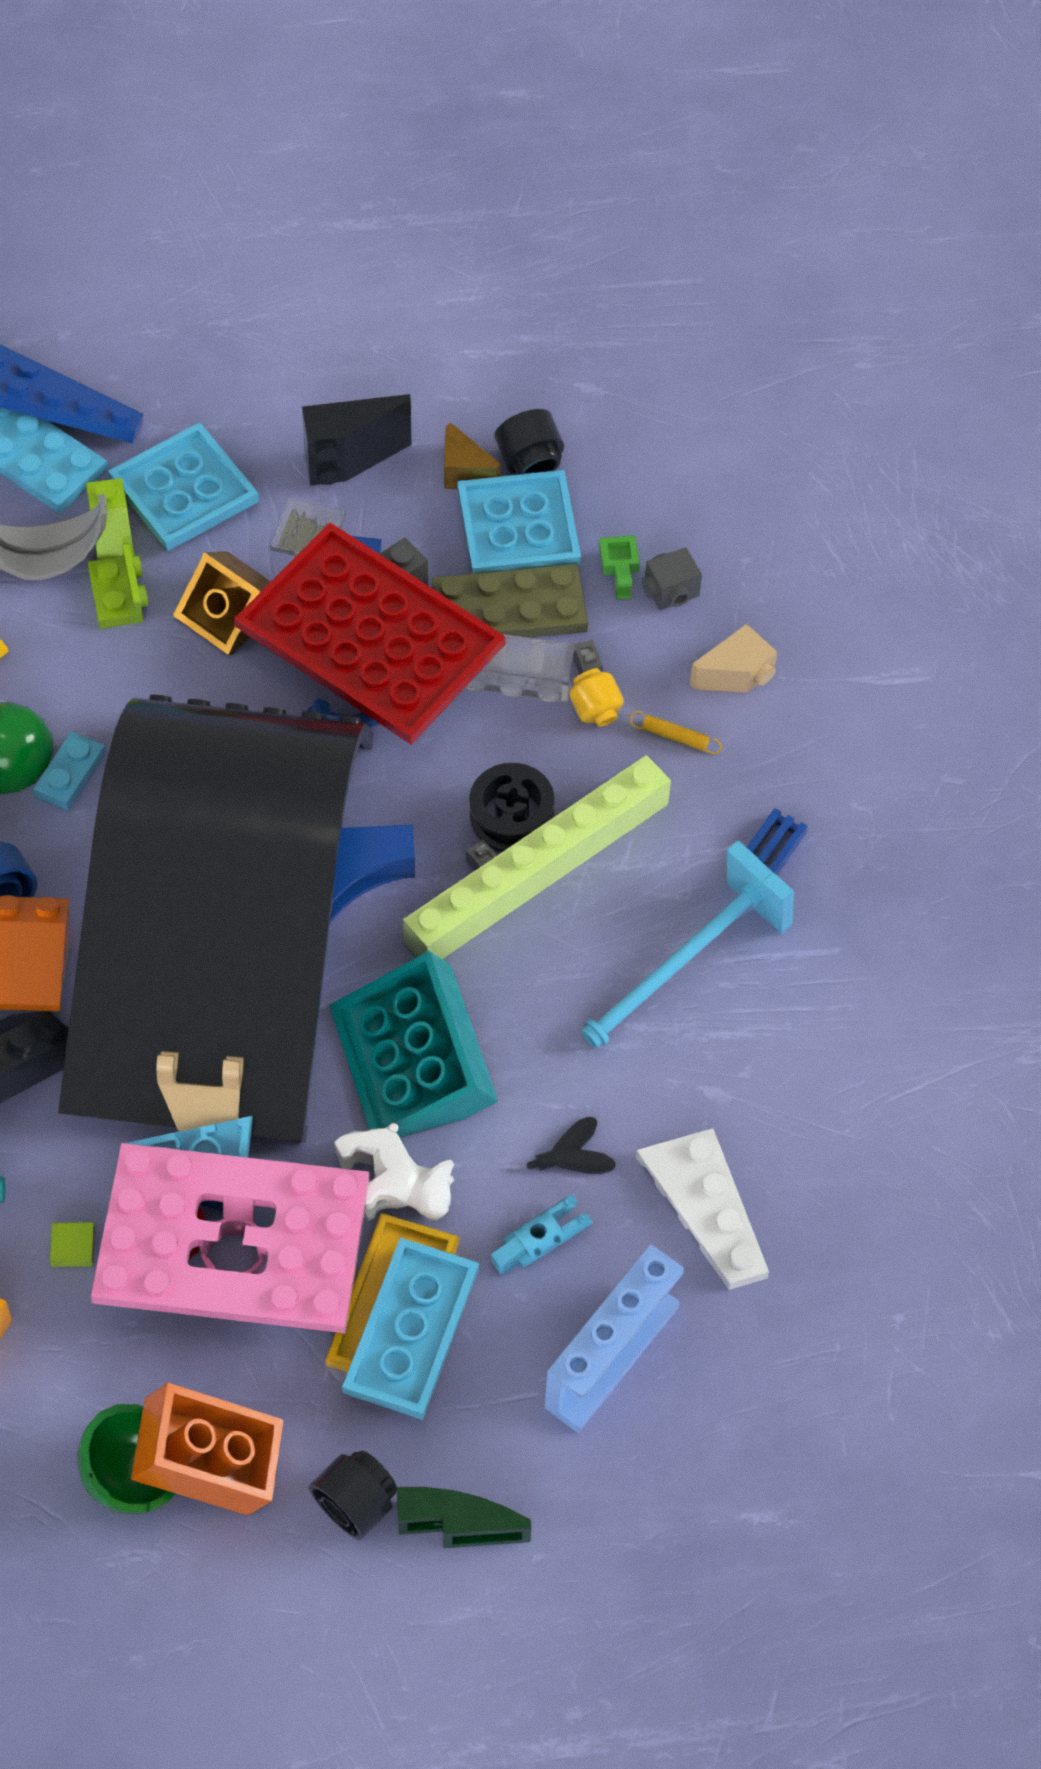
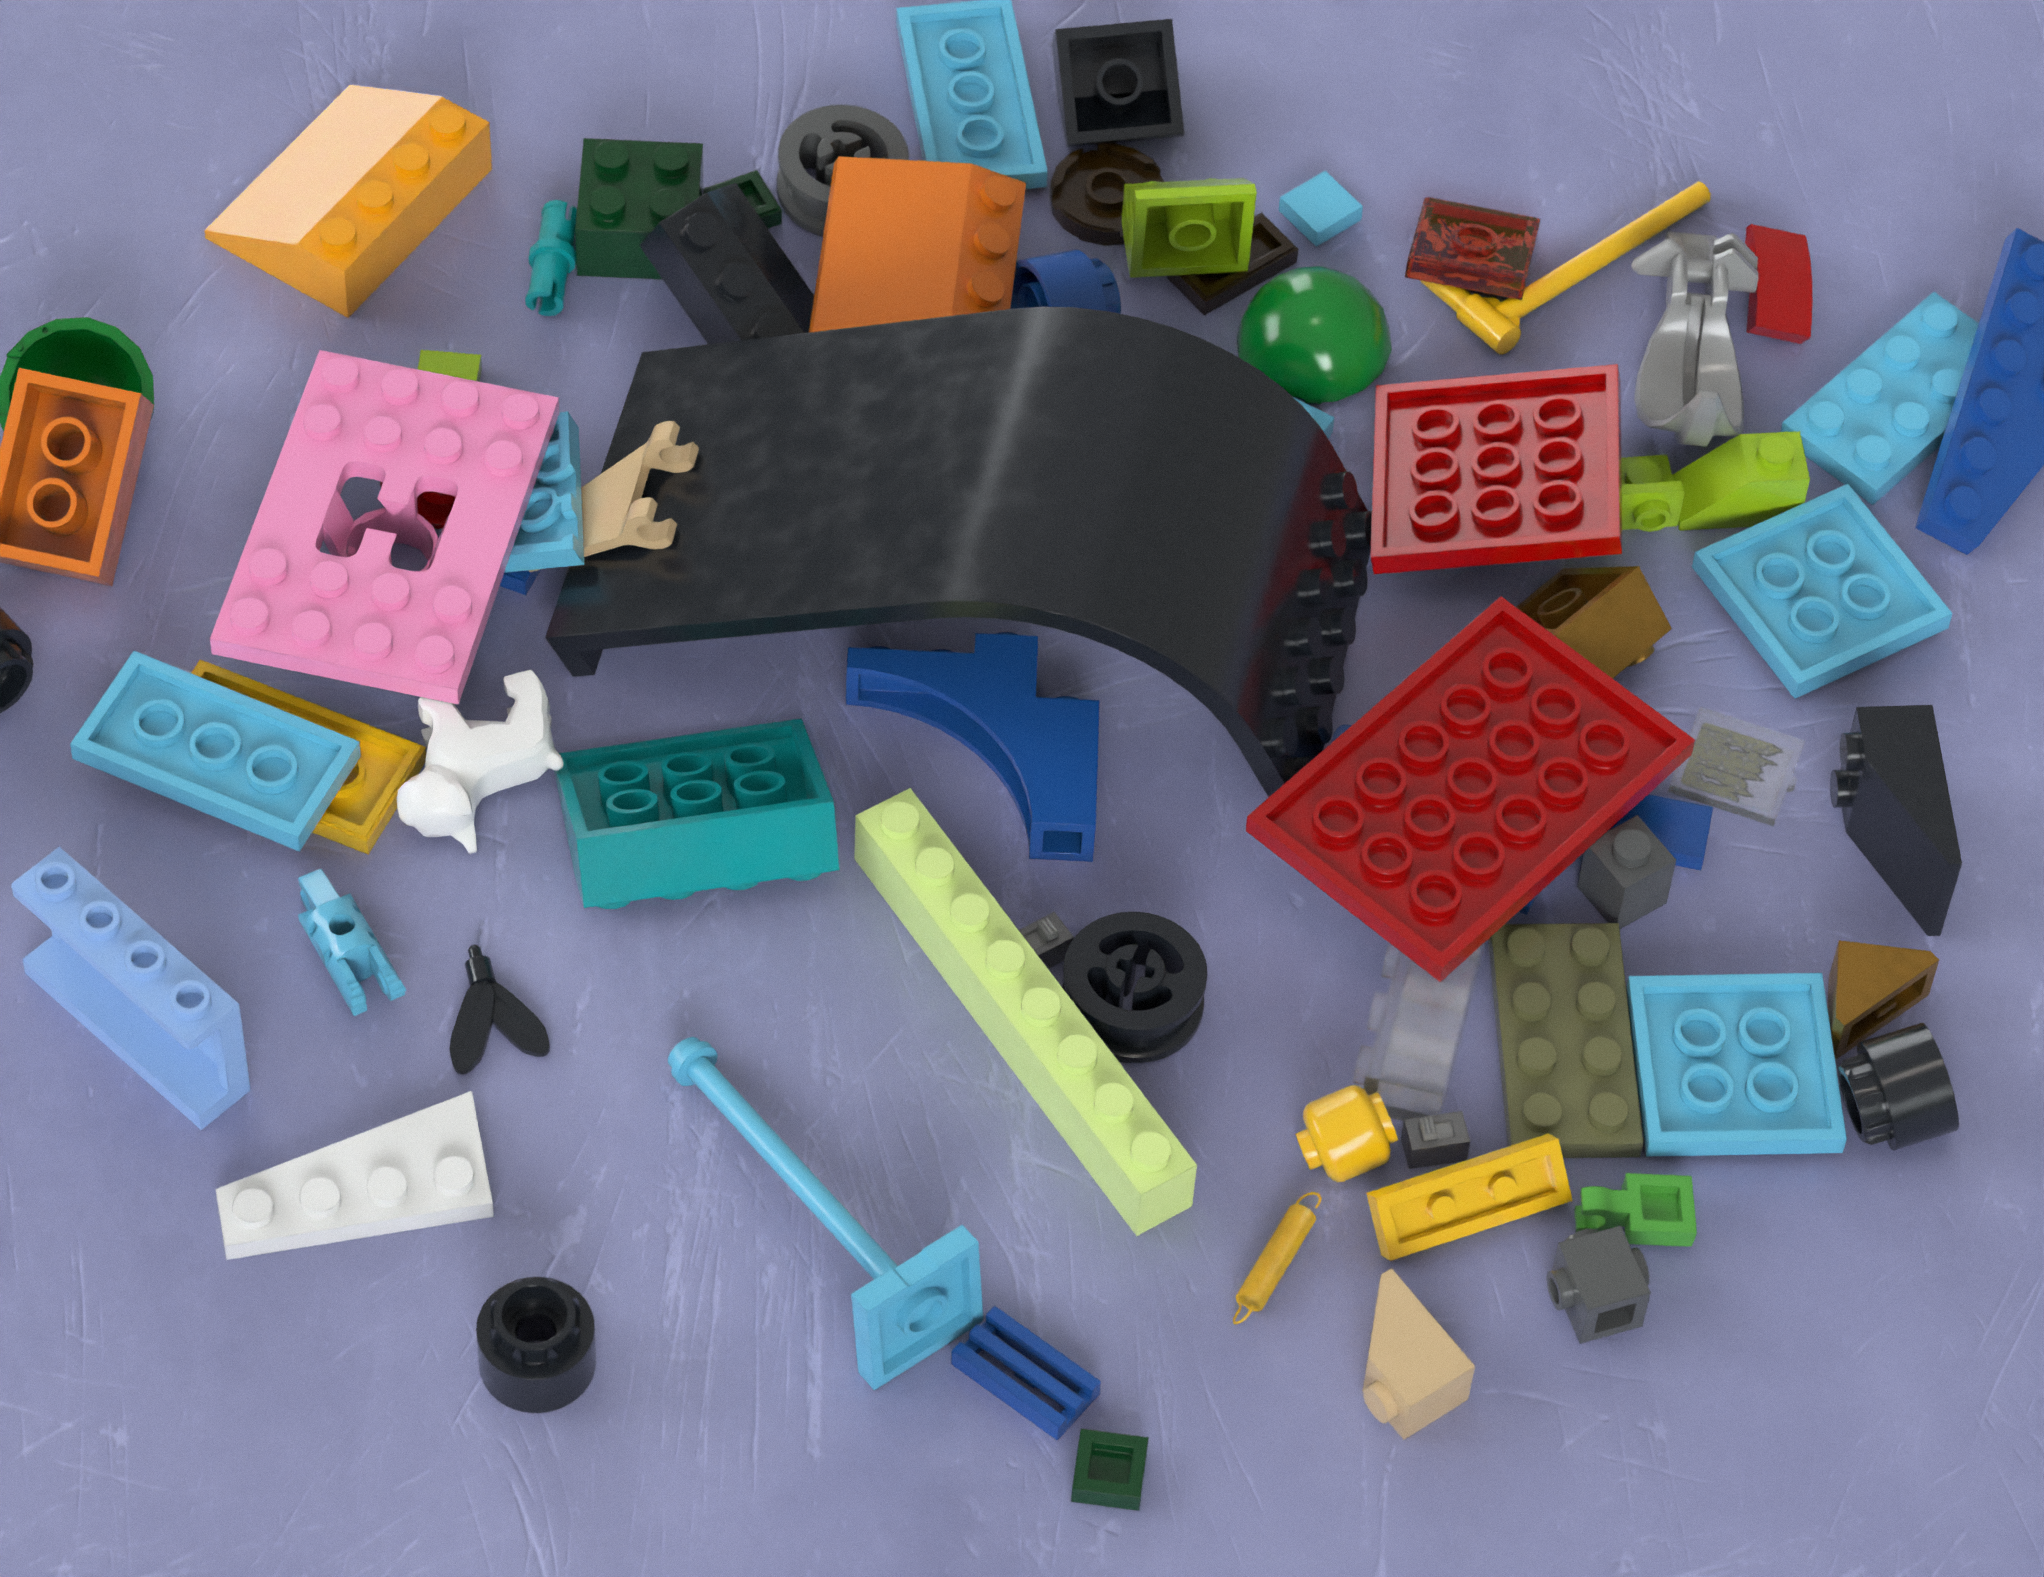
camera: 95 degrees right, 5 degrees down
(120, 633) = (1497, 469): none -> plate
(627, 640) = (1469, 1197): none -> yellow plate
(807, 1108) = (543, 1373): none -> black piece
(824, 803) = (1109, 1469): none -> dark green tile

